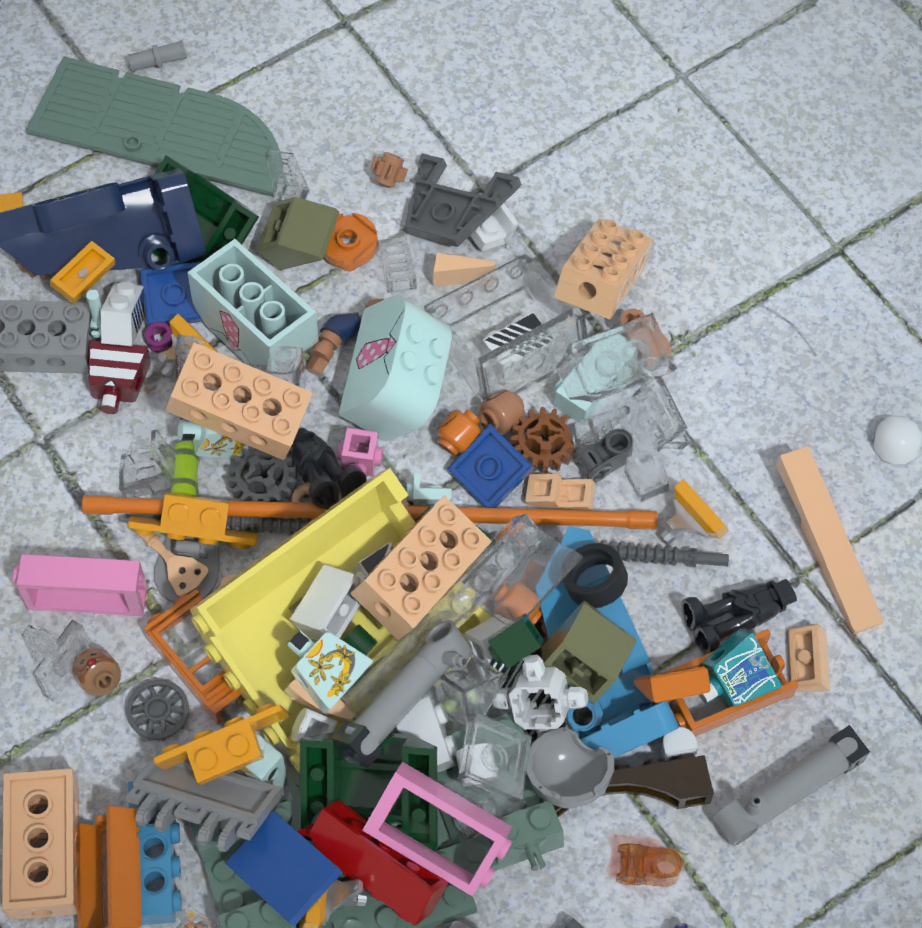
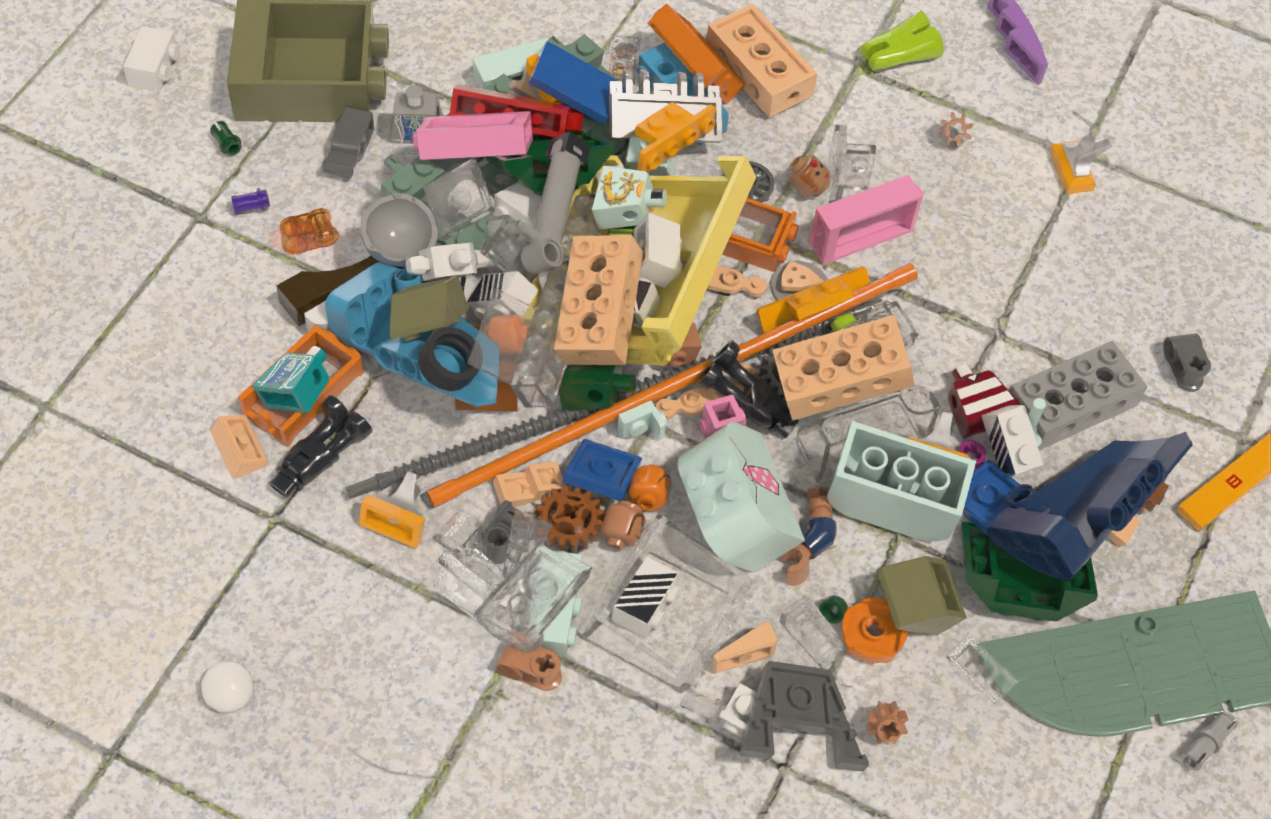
camera: 150 degrees right, 5 degrees down
(83, 274) = (1072, 447): light orange piece -> none
(367, 271) = (828, 605): none -> dark green hinge
(515, 641) = (486, 271): dark green brick -> none
(601, 271) = (620, 706): light nougat brick -> none
(674, 684) = (345, 334): orange slope -> none
(746, 815) = (181, 373): light grey piece -> none
(828, 539) = (262, 552): light nougat slope -> none

